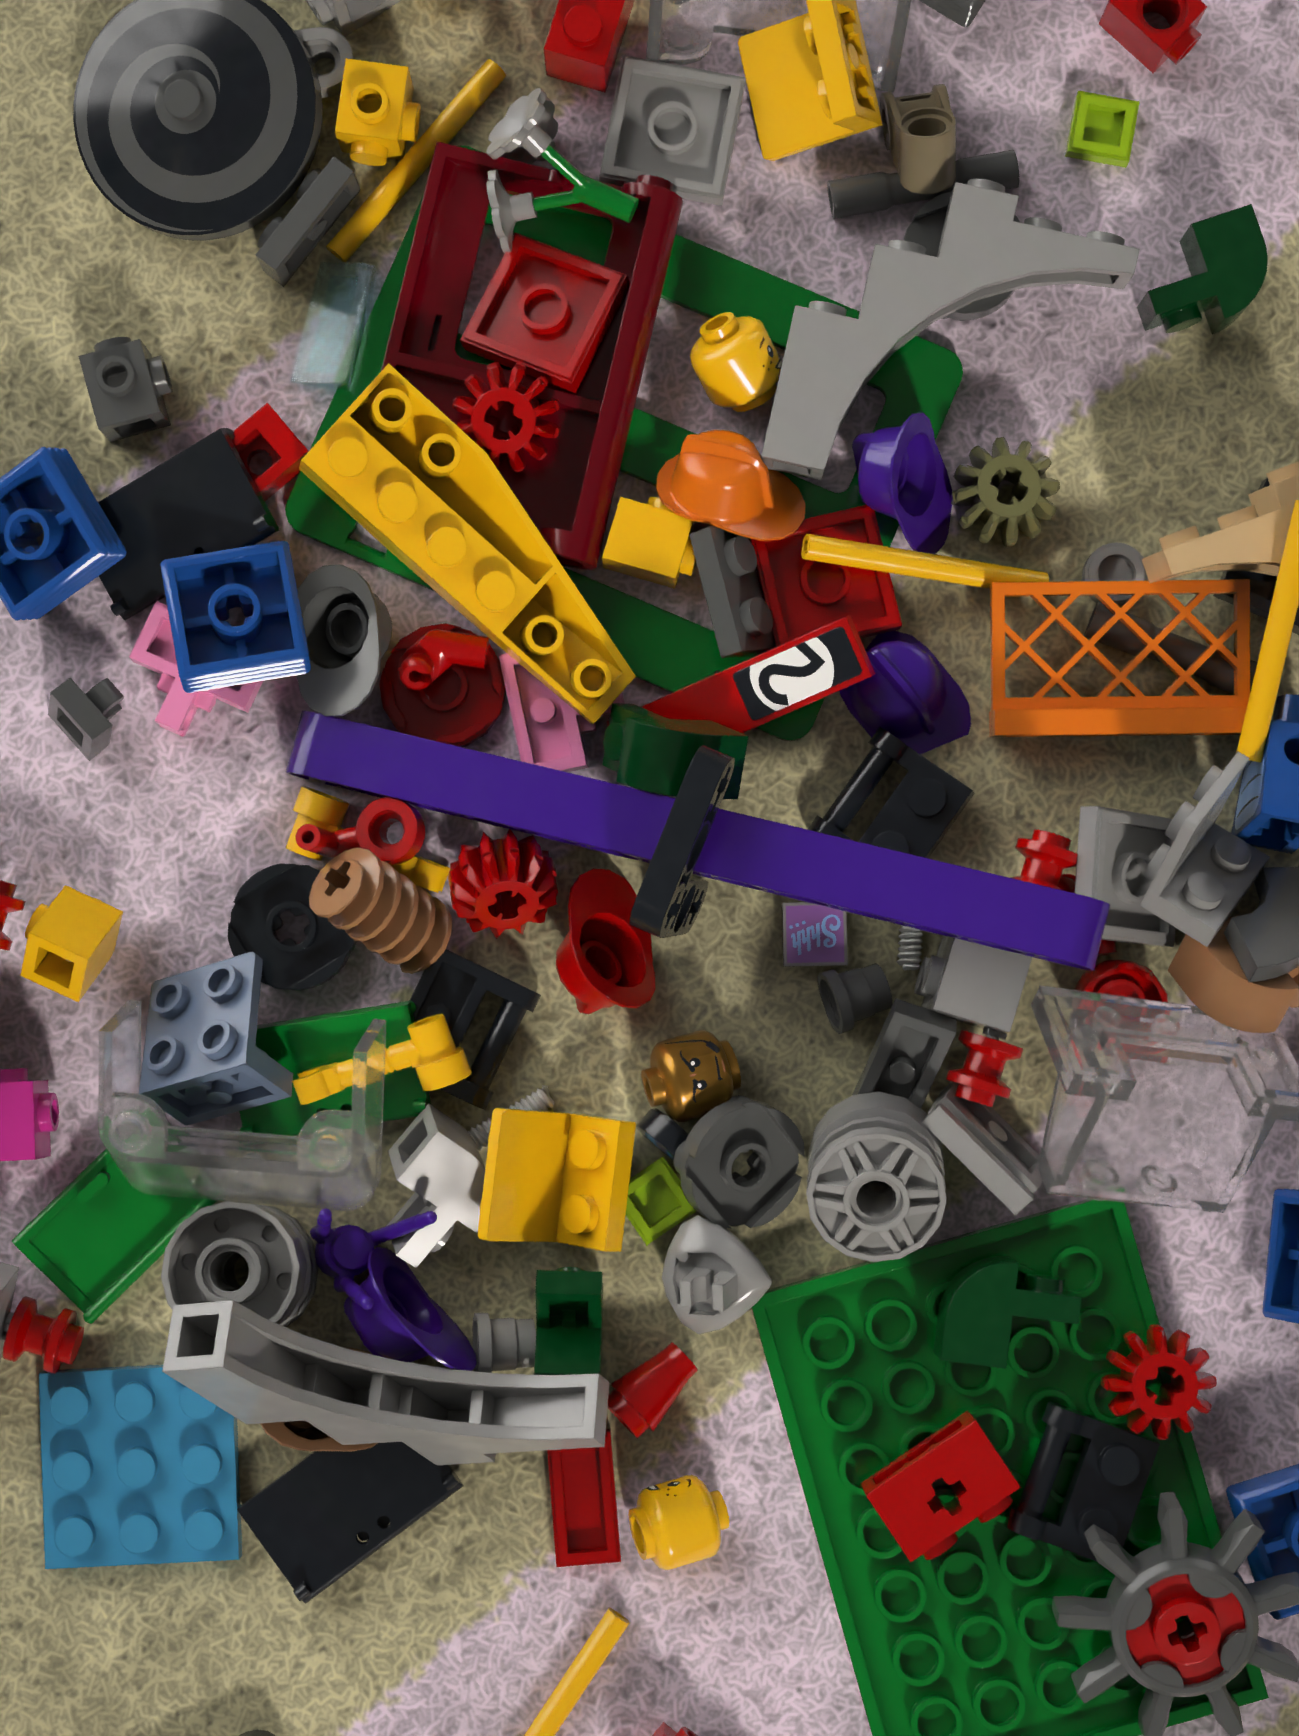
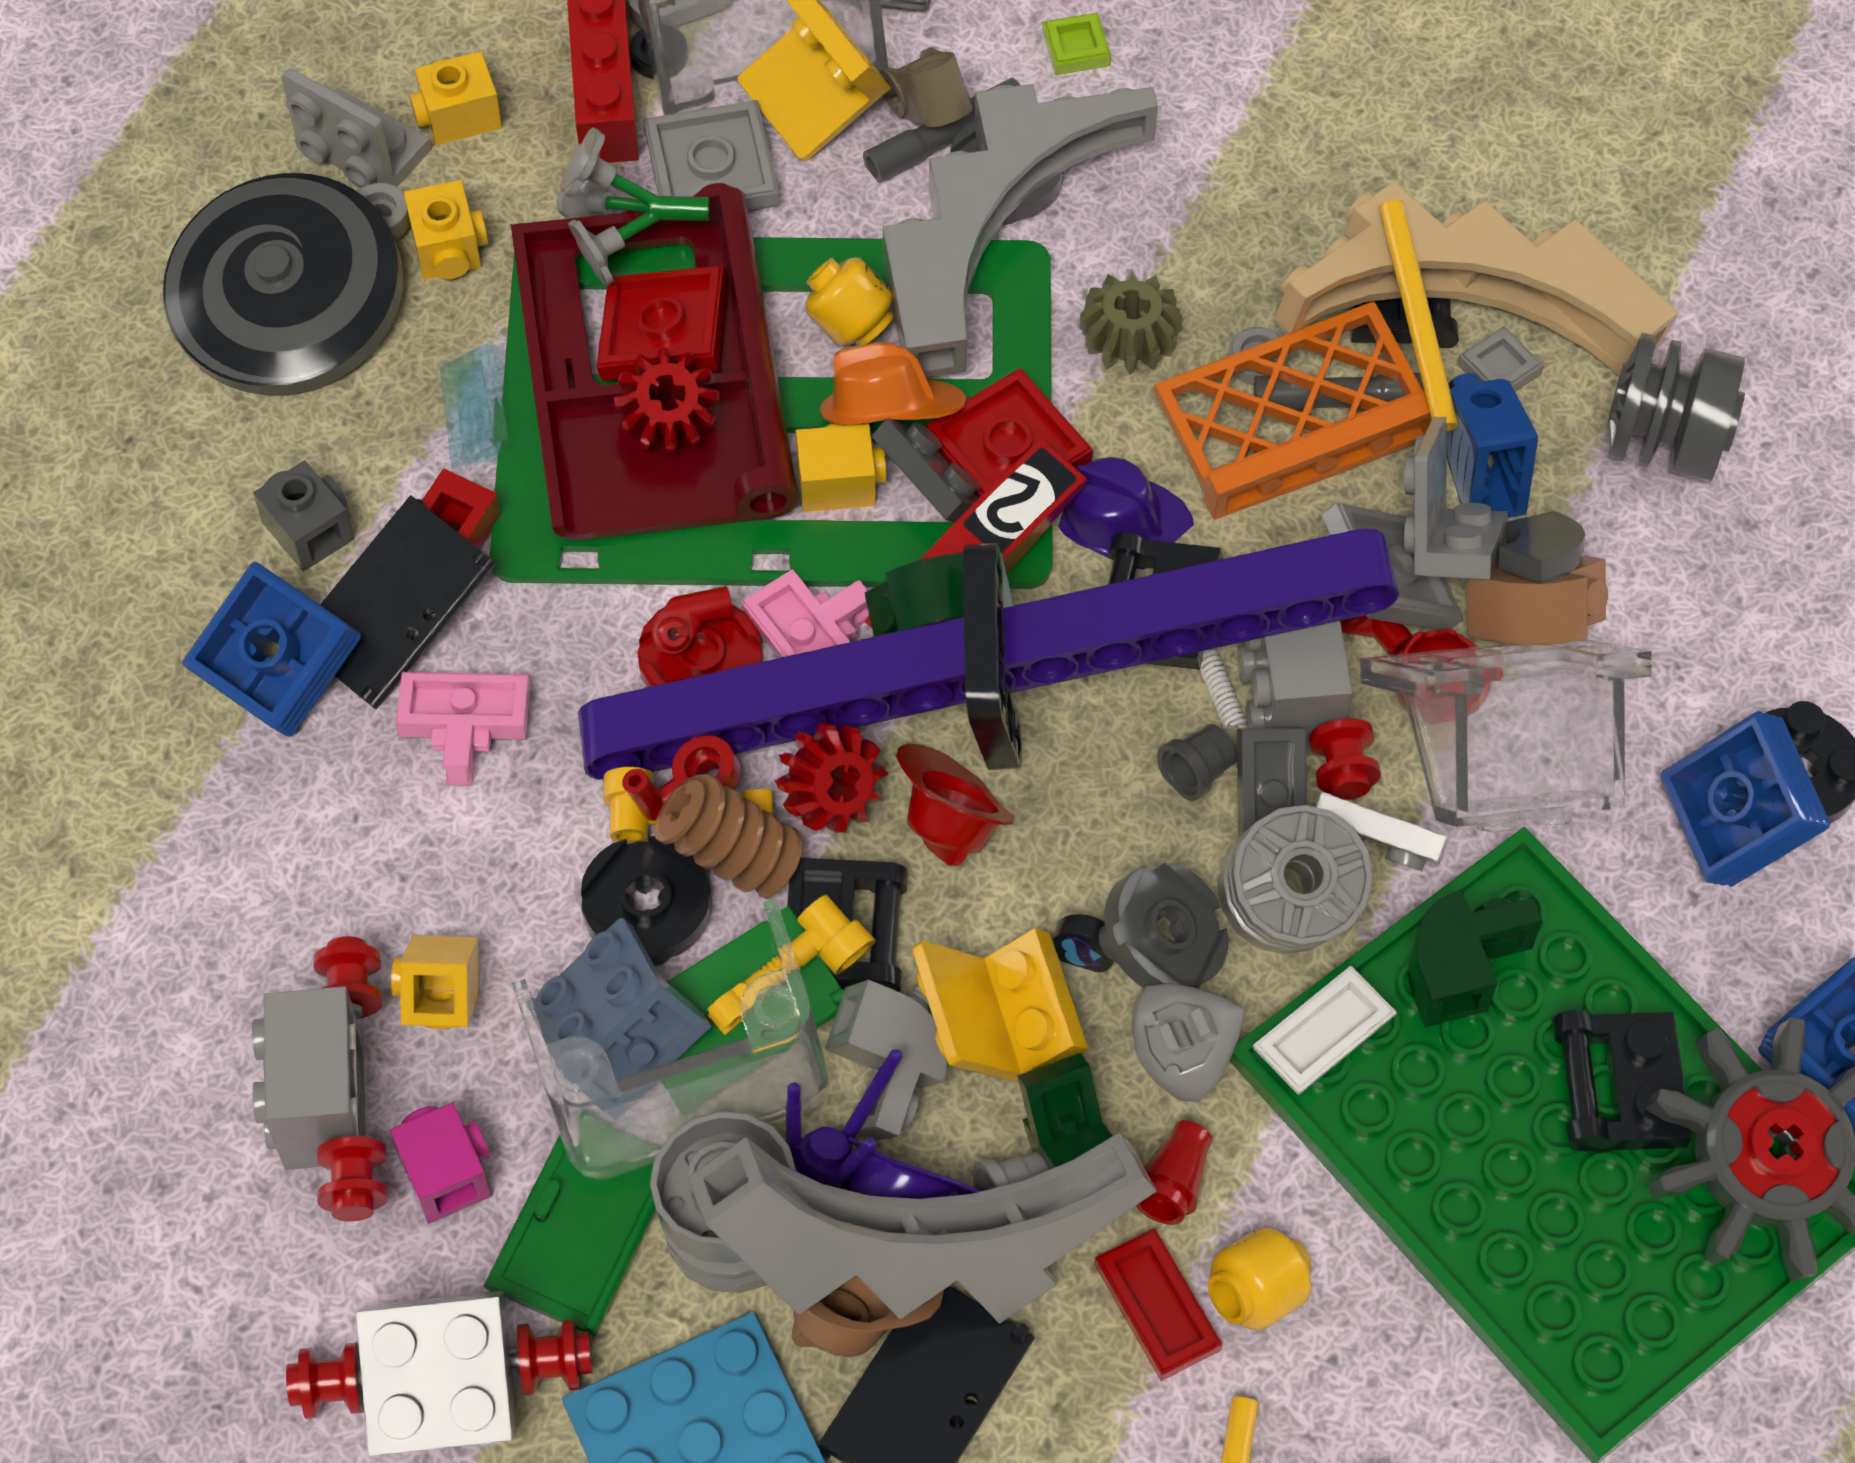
camera: 25 degrees left, 25 degrees down
(87, 715) = (370, 791): dark grey tile -> none
(198, 604) = (487, 642): blue brick -> none
(320, 203) = (422, 319): dark grey plate -> none
(345, 639) = (586, 632): dark grey piece -> none
(416, 161) = (493, 263): yellow piece -> none
(466, 535) = (669, 505): yellow wedge -> none
(656, 1201) = (1102, 1008): lime tile -> none
(691, 1075) = (1079, 876): pearl gold head -> none
(813, 935) = (1135, 728): medium lavender tile -> none
(838, 1326) = (1324, 1030): none -> white tile
(906, 480) = (1035, 335): dark purple piece -> none
(907, 1500) = (1500, 1091): red brick -> none
(913, 563) = (1071, 397): yellow piece -> none
(1173, 1397) = (1652, 937): red gear -> none
(1226, 270) = (1228, 106): dark green brick -> none

